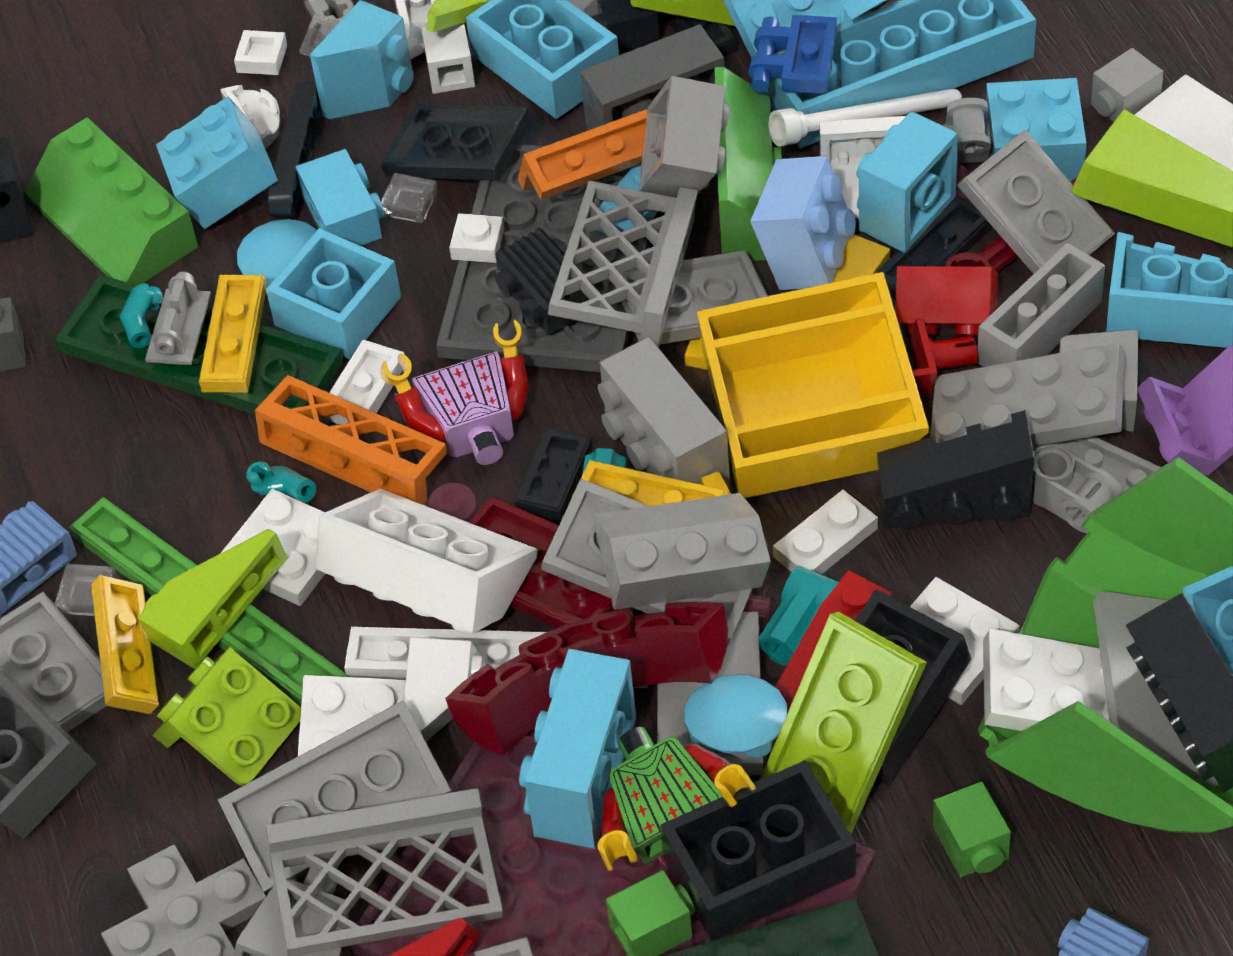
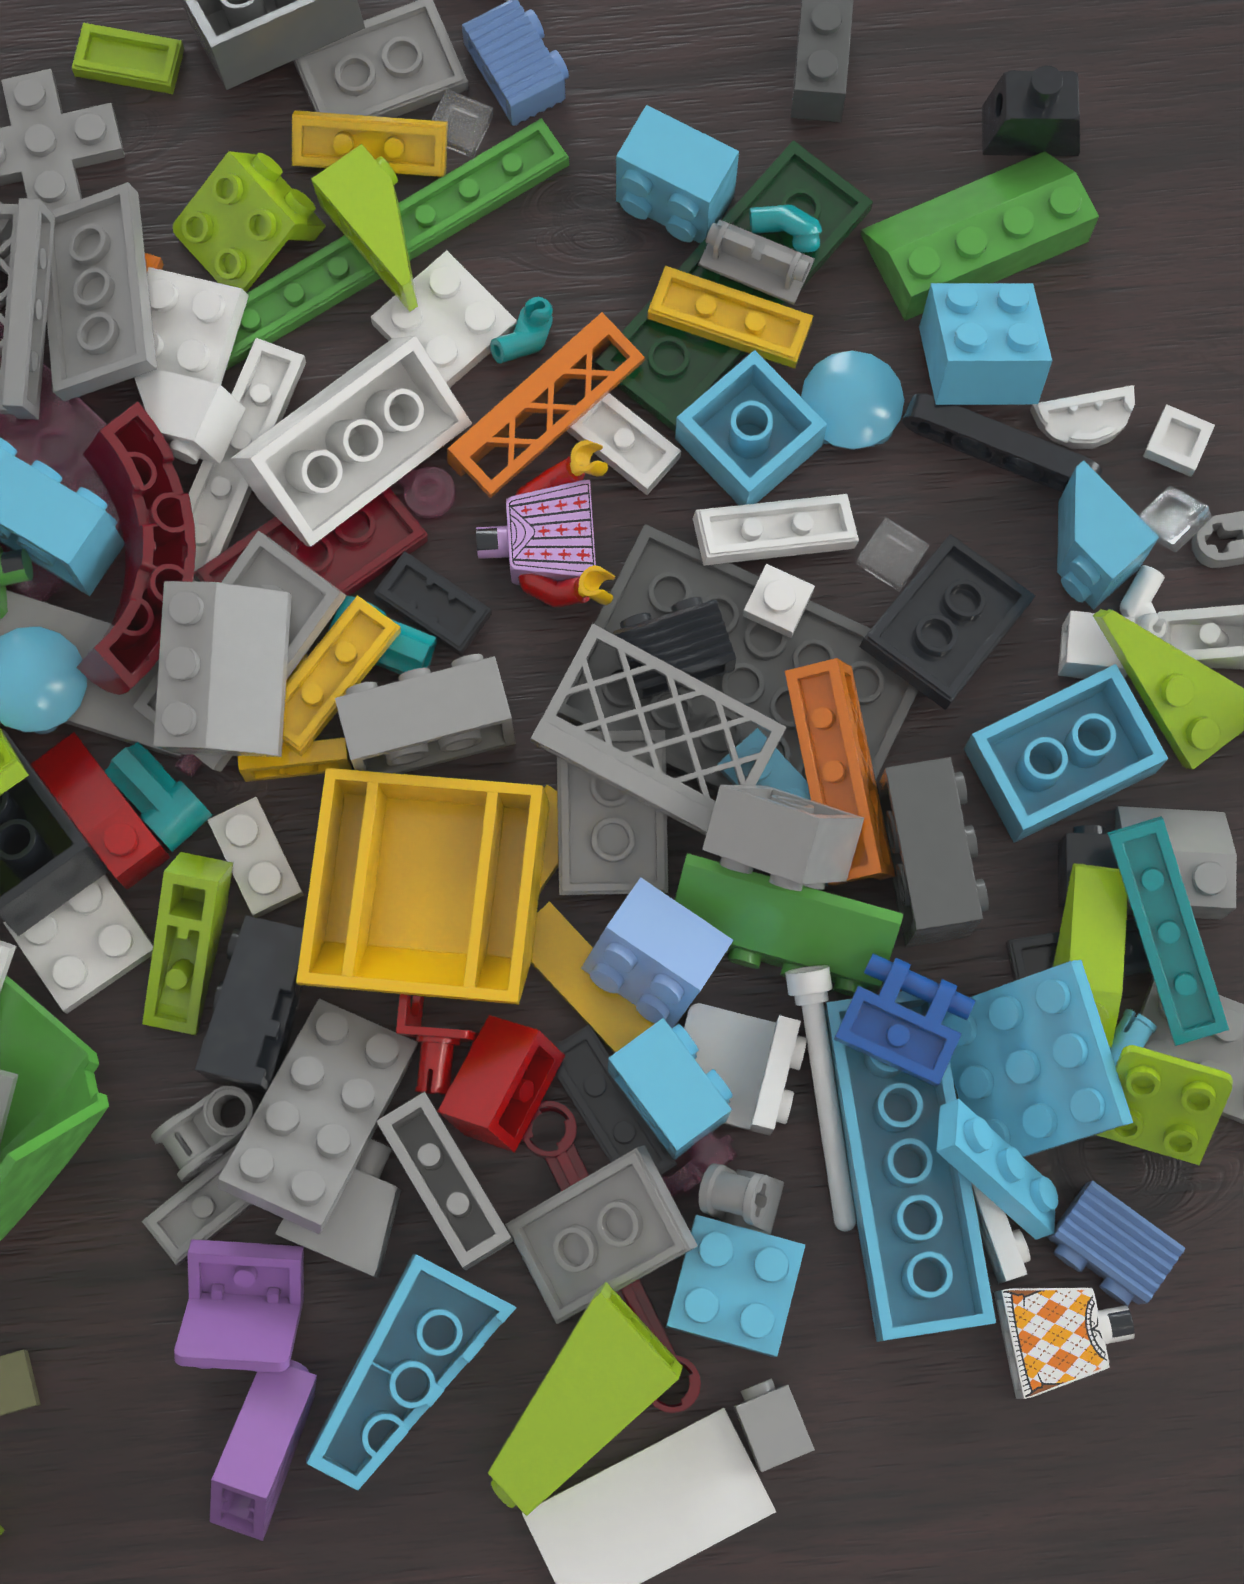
camera: 100 degrees right, 25 degrees up
(72, 879) = (128, 58): none -> lime tile
(113, 395) = (675, 175): none -> medium azure brick
(339, 198) = (901, 473): medium azure brick -> none
(417, 266) = (775, 529): none -> white tile
(912, 549) = (186, 941): none -> lime slope

